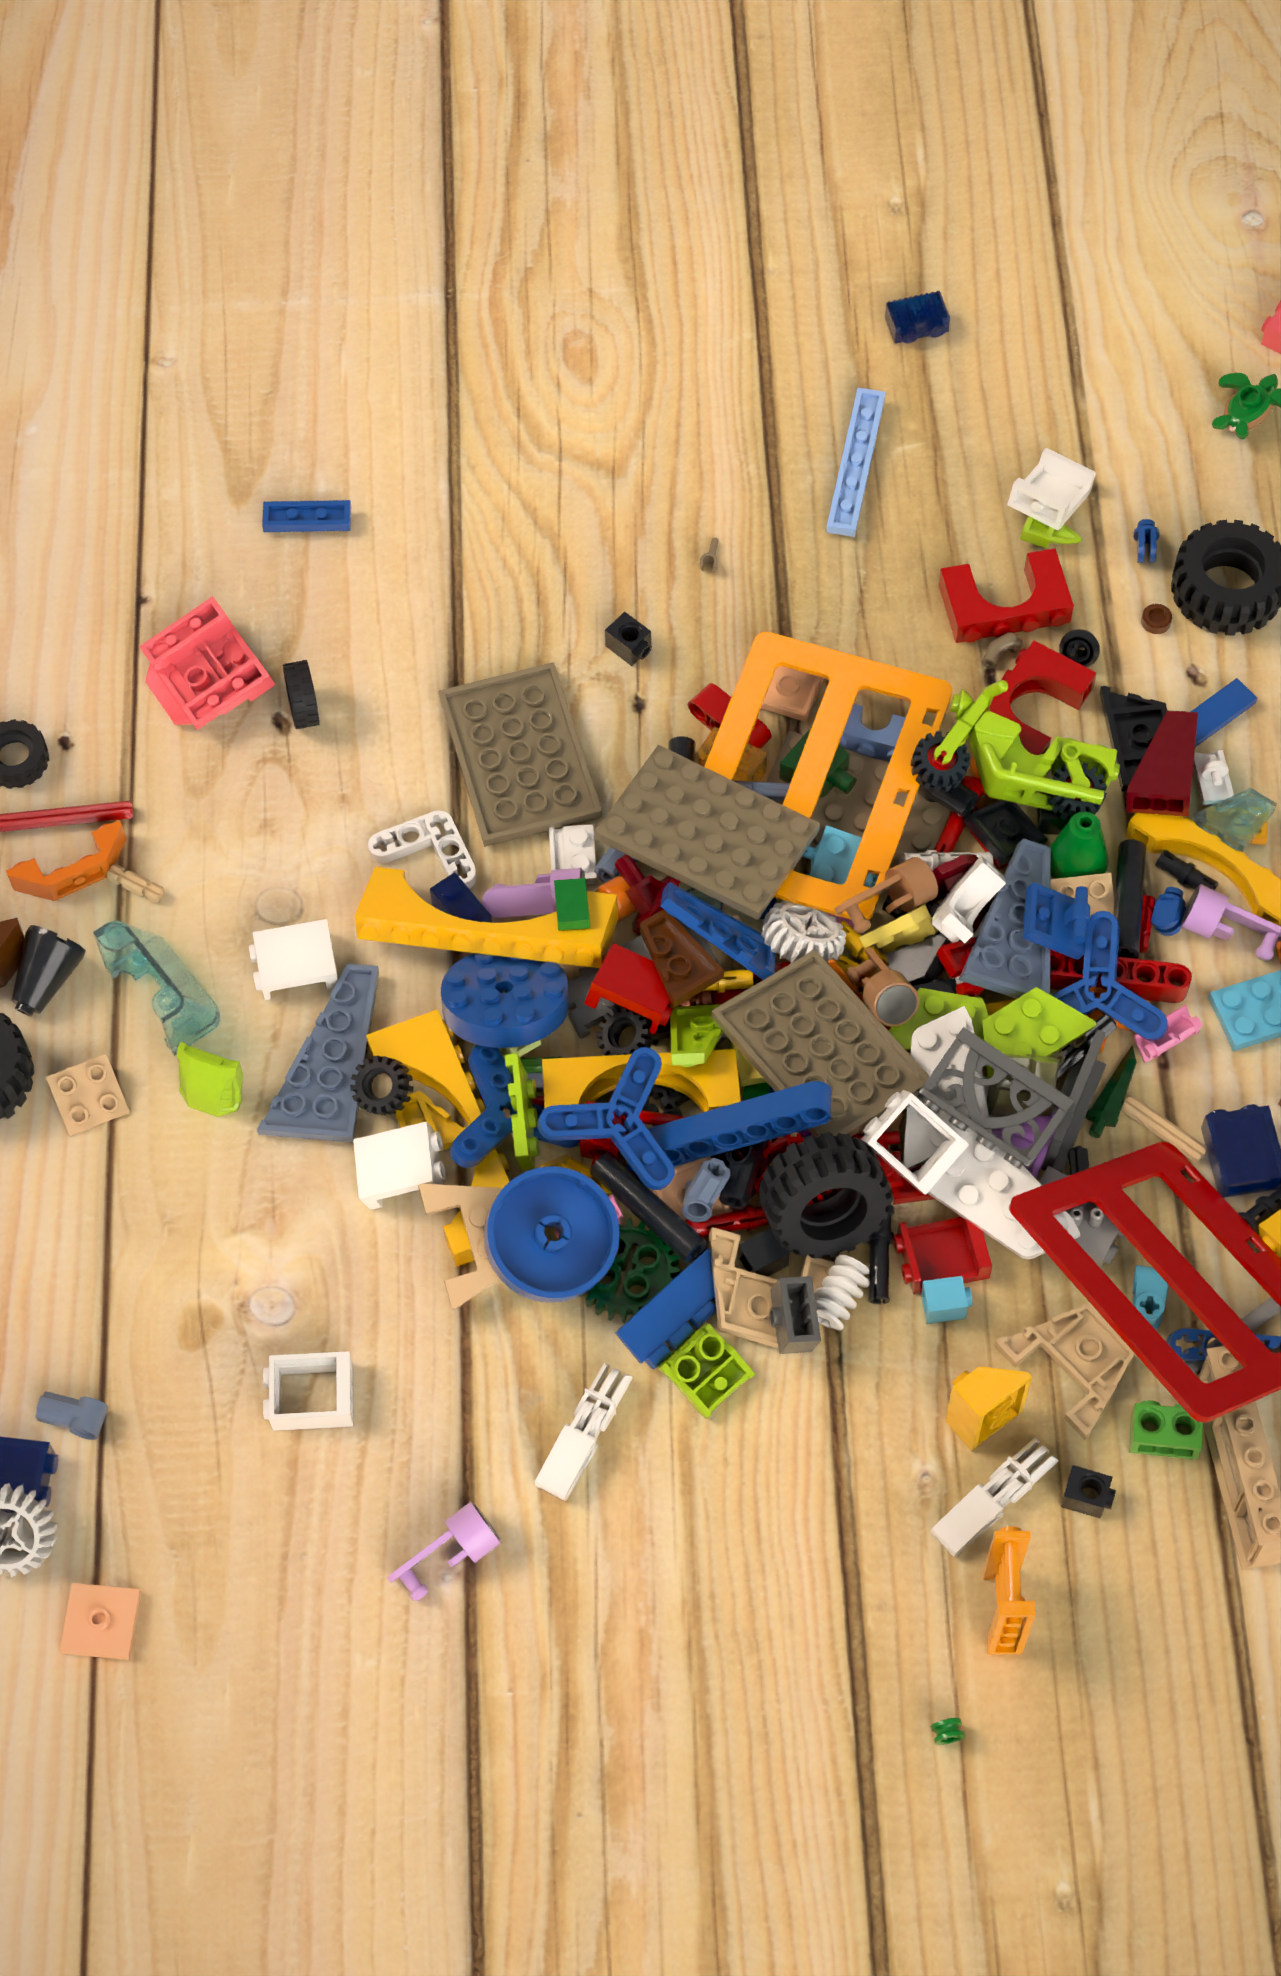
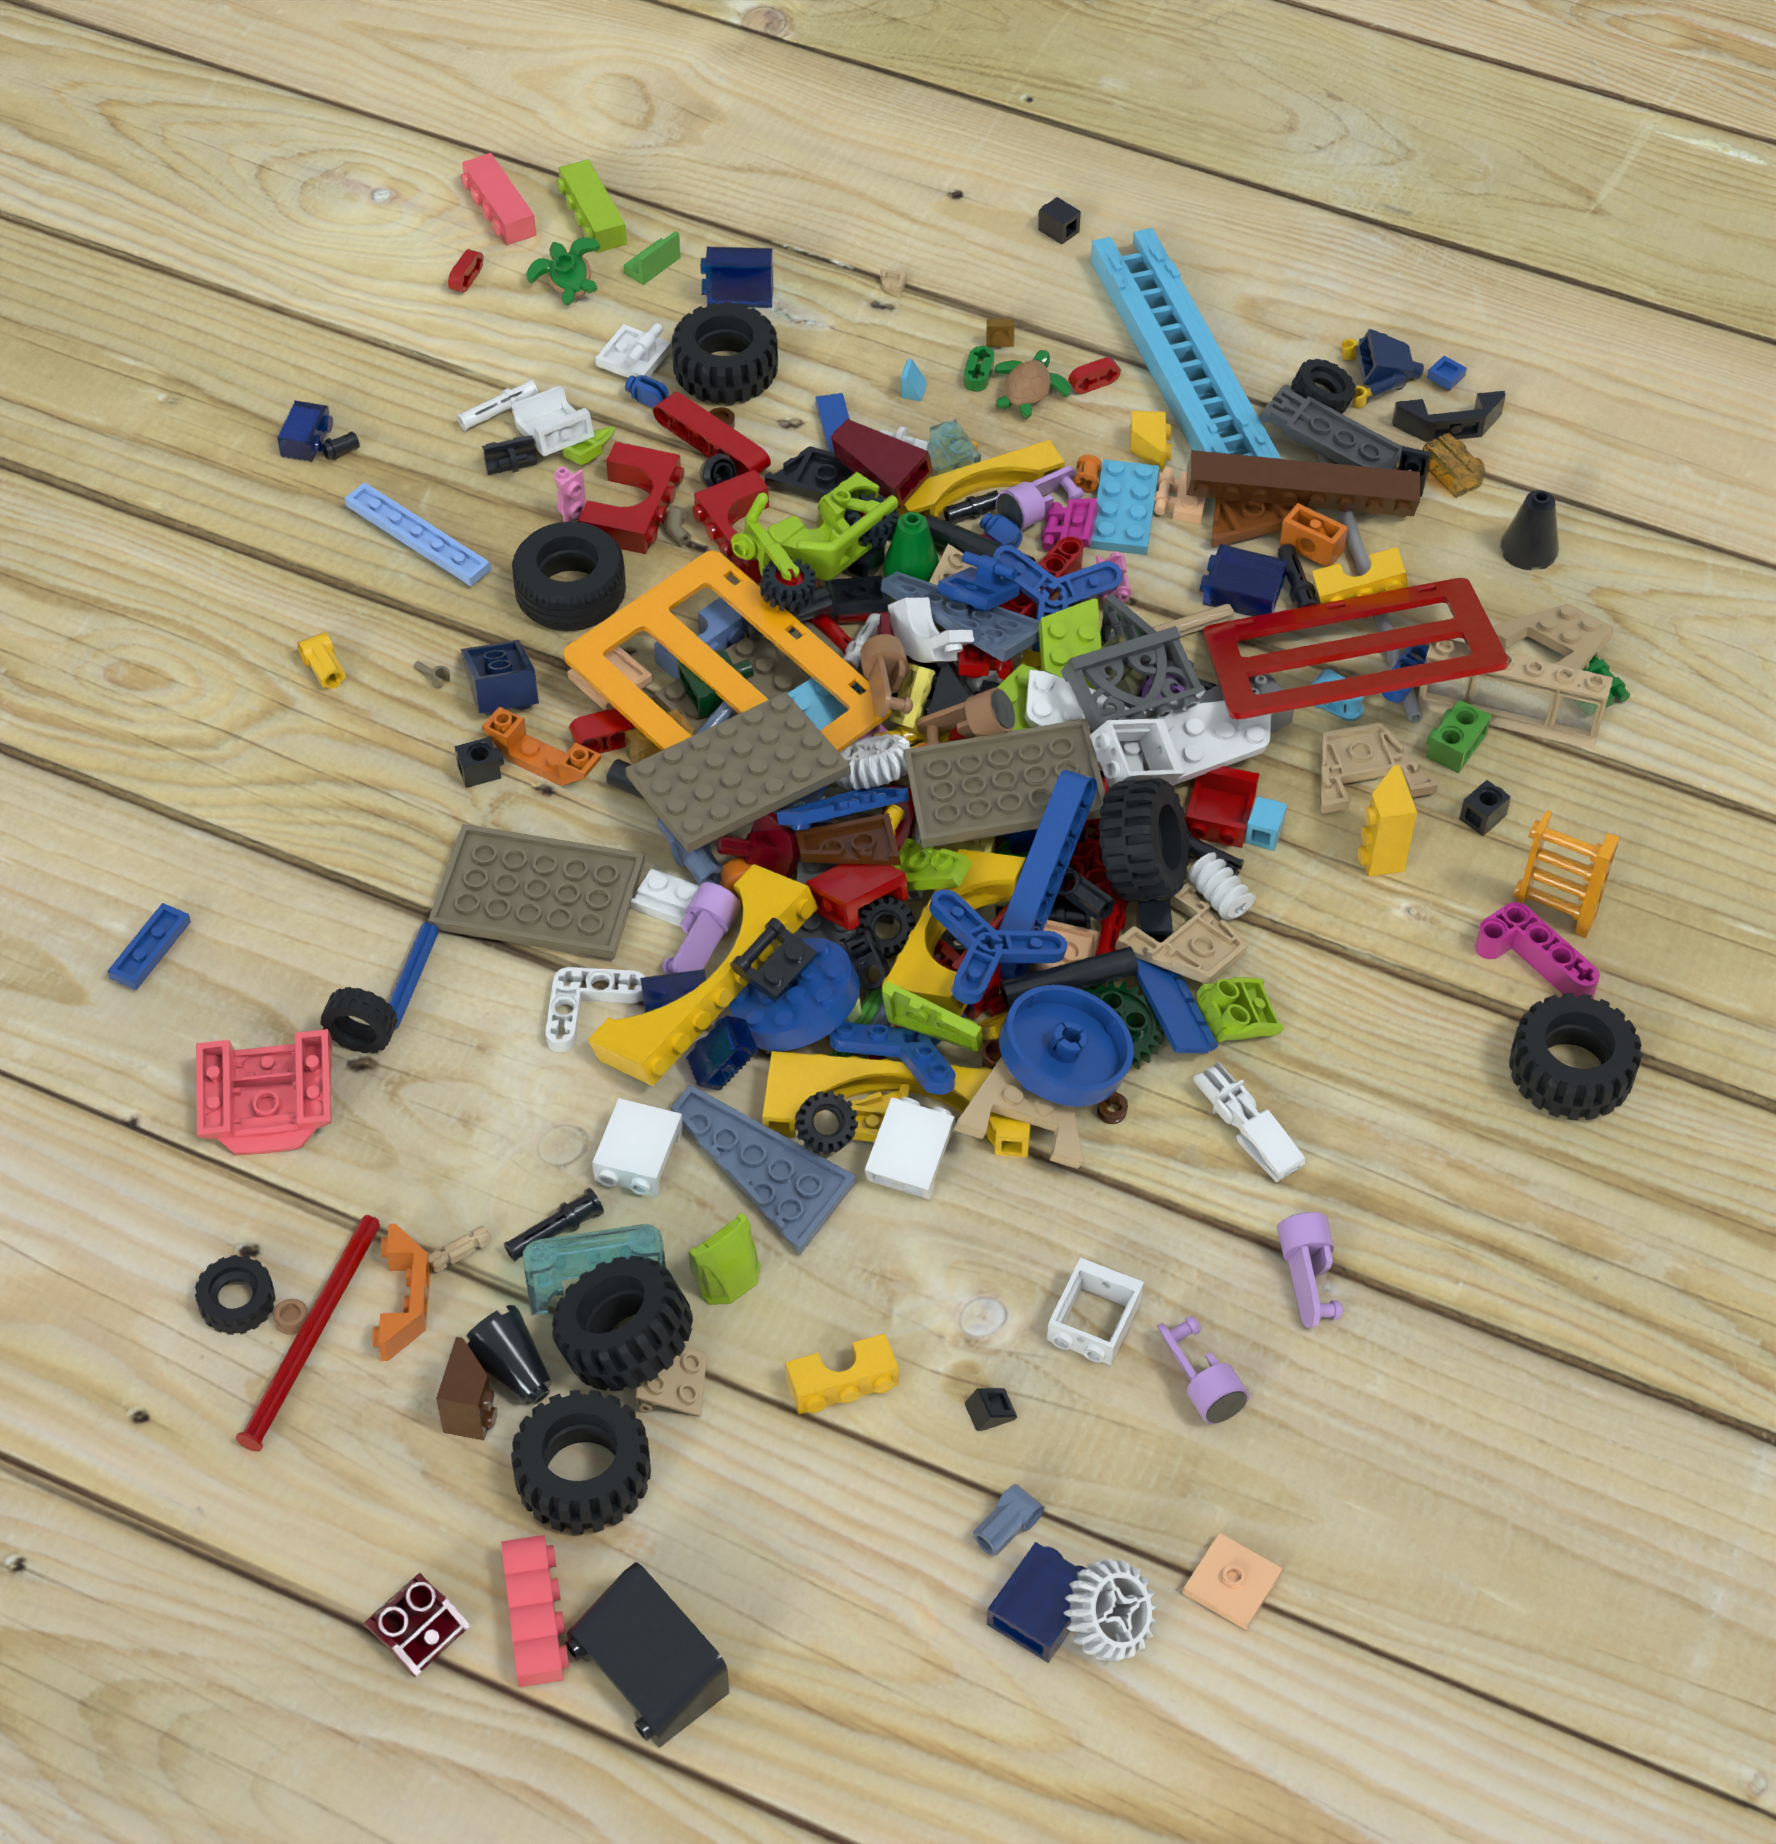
camera: 65 degrees left, 10 degrees down
(17, 800) = (290, 1316): none -> medium nougat tile
(97, 1030) = (641, 1345): none -> black tyre
(167, 1240) = (817, 1387): none -> yellow arch
(181, 1353) = (990, 1408): none -> black slope
(201, 943) = (568, 1217): none -> black pin
(278, 1517) = (1214, 1391): none -> lavender piece
(381, 709) = (412, 969): none -> blue axle
(415, 972) = (722, 1053): none -> clear blue brick
(509, 969) = (781, 967): none -> black plate
(550, 1317) = (1118, 1115): none -> reddish brown bush
(571, 904) = (746, 894): green tile -> none
(579, 1037) = (866, 956): none -> black piece
(667, 672) = (561, 768): none -> orange slope
(673, 464) = (320, 656): none -> yellow piece
(704, 1190) = (1084, 931): sand blue piece -> none
(733, 604) = (500, 676): none -> dark blue slope
(794, 1315) = (1234, 915): dark grey brick -> none
(811, 1647) = (1583, 1024): none -> black tyre
(880, 564) = (569, 603): none -> black tyre
(920, 352) = (340, 445): none -> black pin
(931, 1620) = (1539, 945): none -> dark pink beam
(947, 1731) = (1645, 986): green bush -> none
(965, 545) = (570, 493): none -> bright pink hinge
(985, 1503) = (1463, 879): white arm -> none
(991, 478) = (509, 455): none -> black hips
(1080, 452) = (495, 405): none -> white pin
(1125, 621) = (709, 433): none -> red beam
(1185, 506) = (634, 351): none -> white plate
(1196, 329) = (465, 270): none -> red beam
(1221, 969) = (1077, 520): none -> dark pink plate

